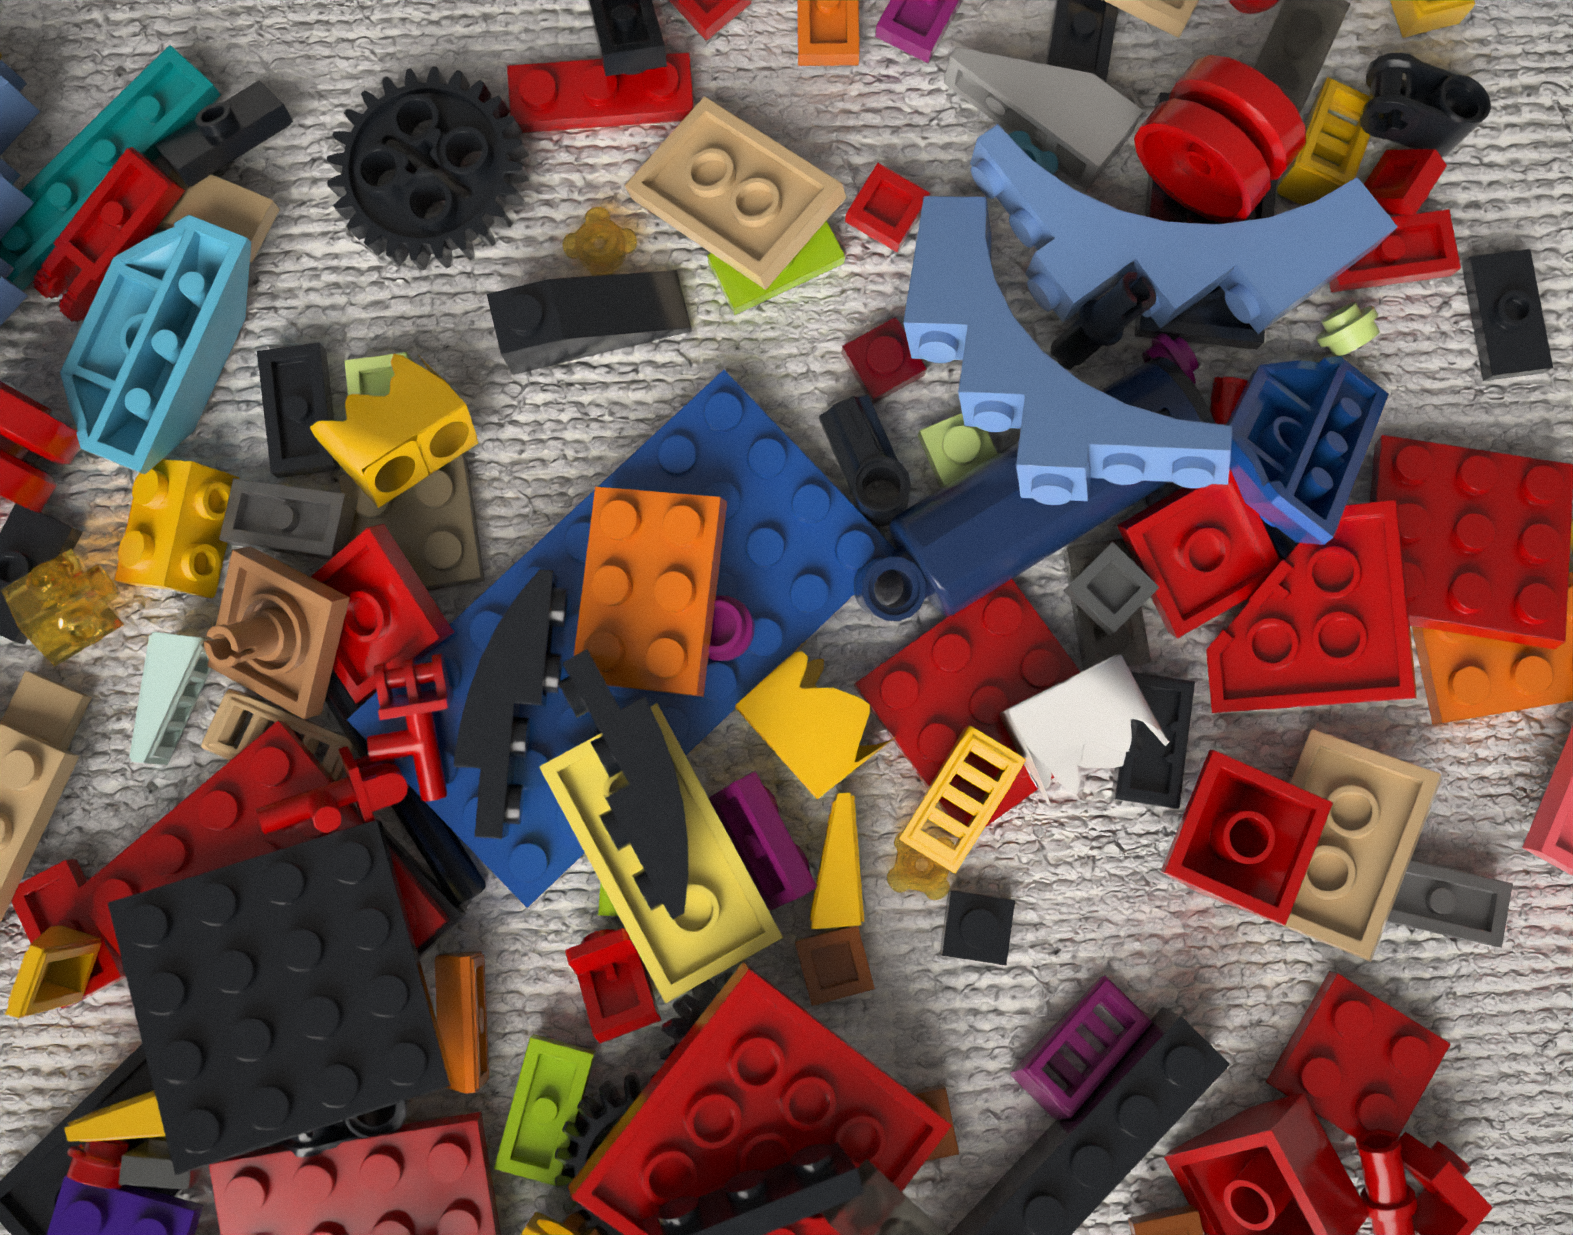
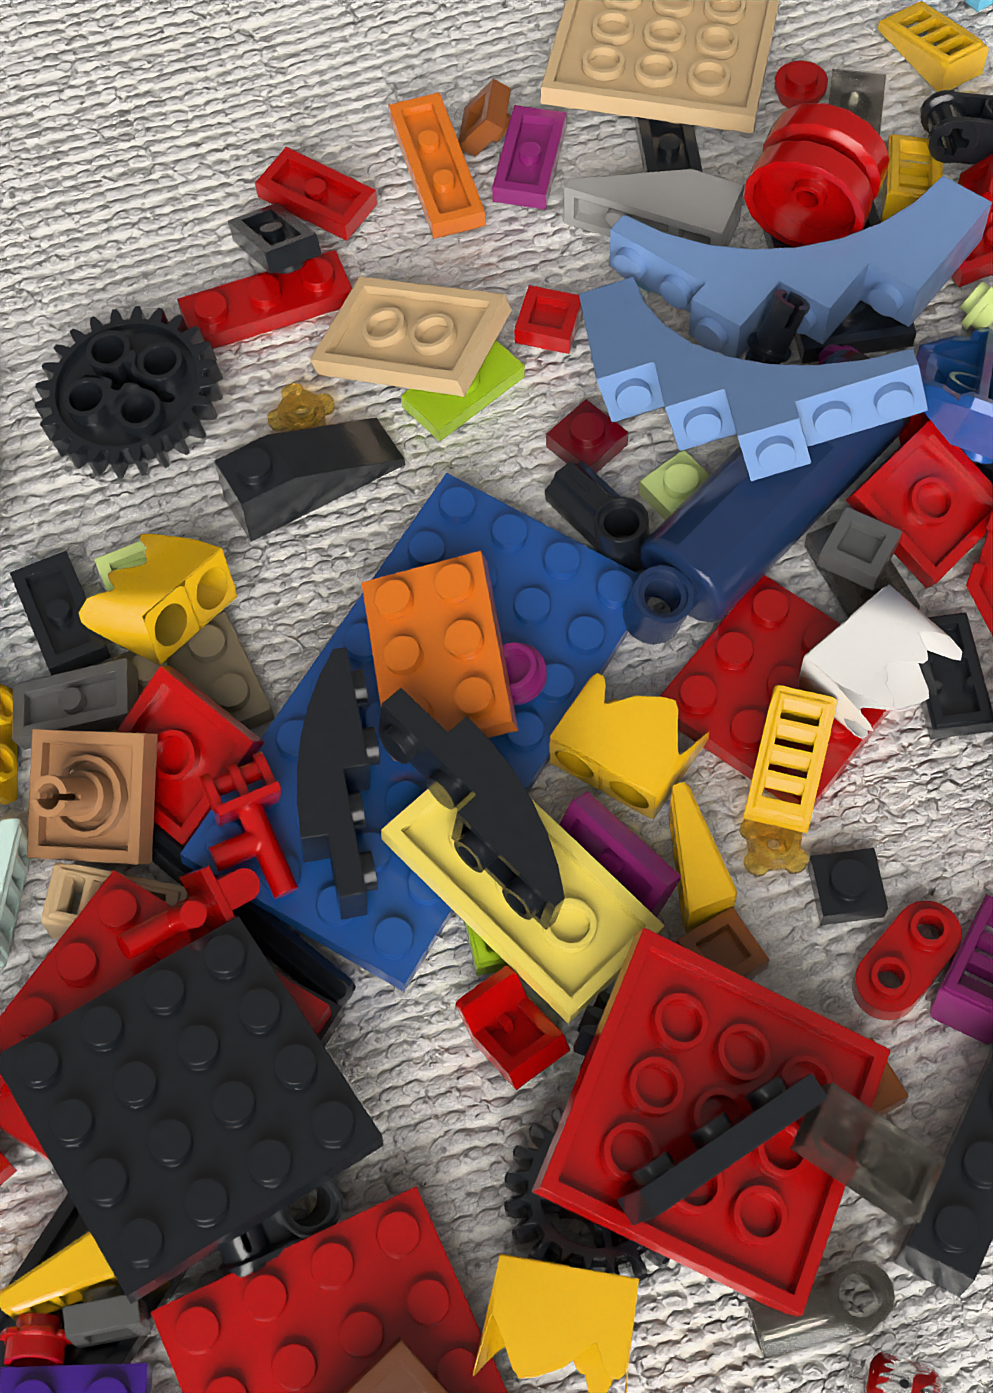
camera: 10 degrees left, 20 degrees down
(463, 1017) = (361, 1071): orange slope -> none
(545, 1098) = (476, 1160): lime plate -> none
(1005, 1013) = (909, 957): none -> red plate

